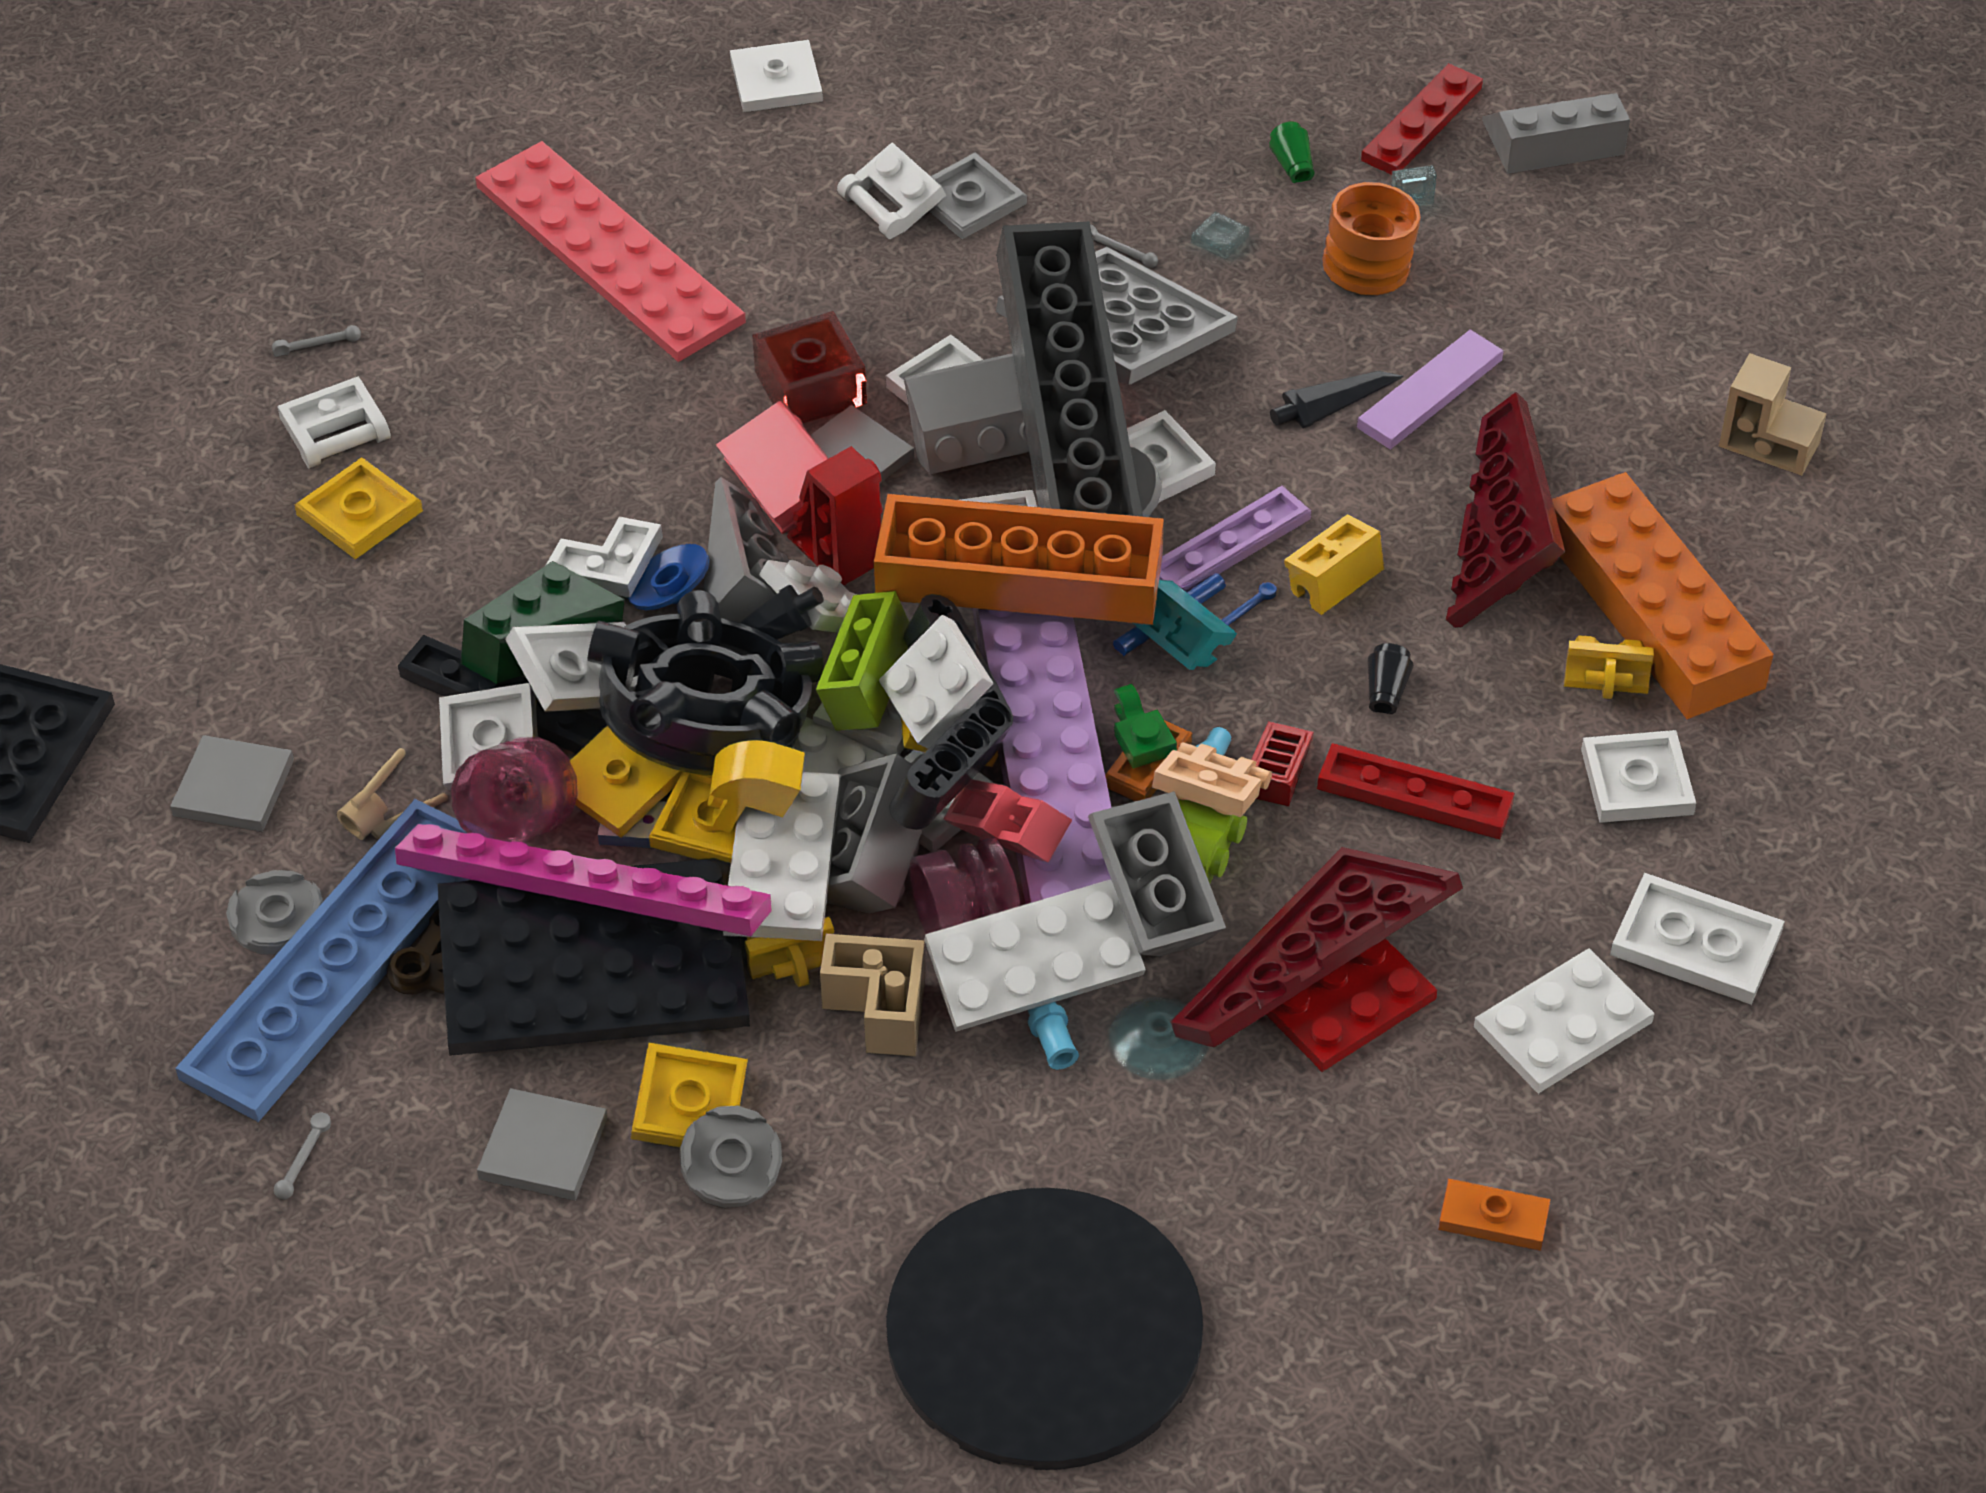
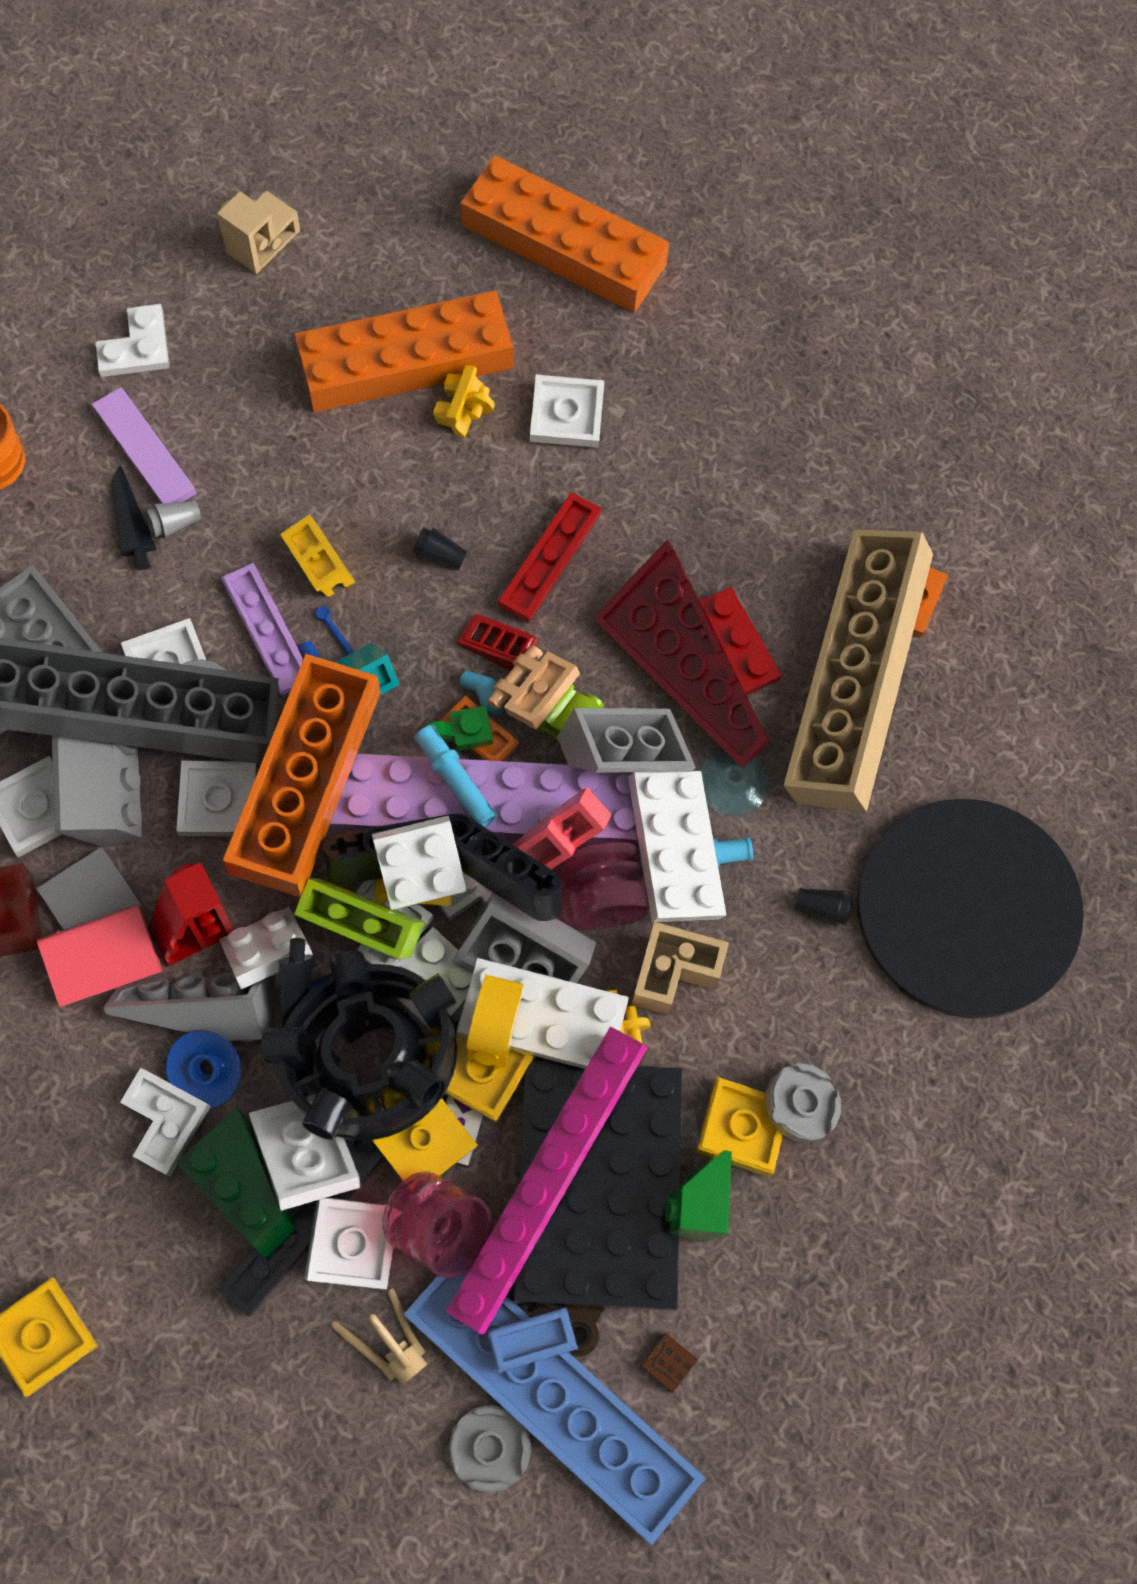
camera: 85 degrees left, 20 degrees up
(232, 783) = (338, 1478): light grey tile -> none
(319, 1123) = (711, 1426): light grey hinge -> none
(389, 1067) = (669, 1363): none -> reddish brown tile
(397, 915) = (532, 1340): none -> medium blue tile
(542, 1144) = (762, 1247): light grey tile -> none
(581, 1042) = (702, 1201): none -> green slope
(1004, 1154) = (826, 905): none -> black cone
(1074, 696) = (447, 765): none -> medium azure pin
(1342, 424) = (171, 517): none -> light grey cone
(1351, 1129) = (859, 670): none -> tan brick
(1512, 520) = (307, 425): dark red wing -> none
(1563, 1020) = (766, 515): white plate -> none
(1570, 364) = (142, 350): none -> white plate
(1697, 938) = (716, 414): white plate -> none
(1906, 728) = (564, 233): none -> orange brick

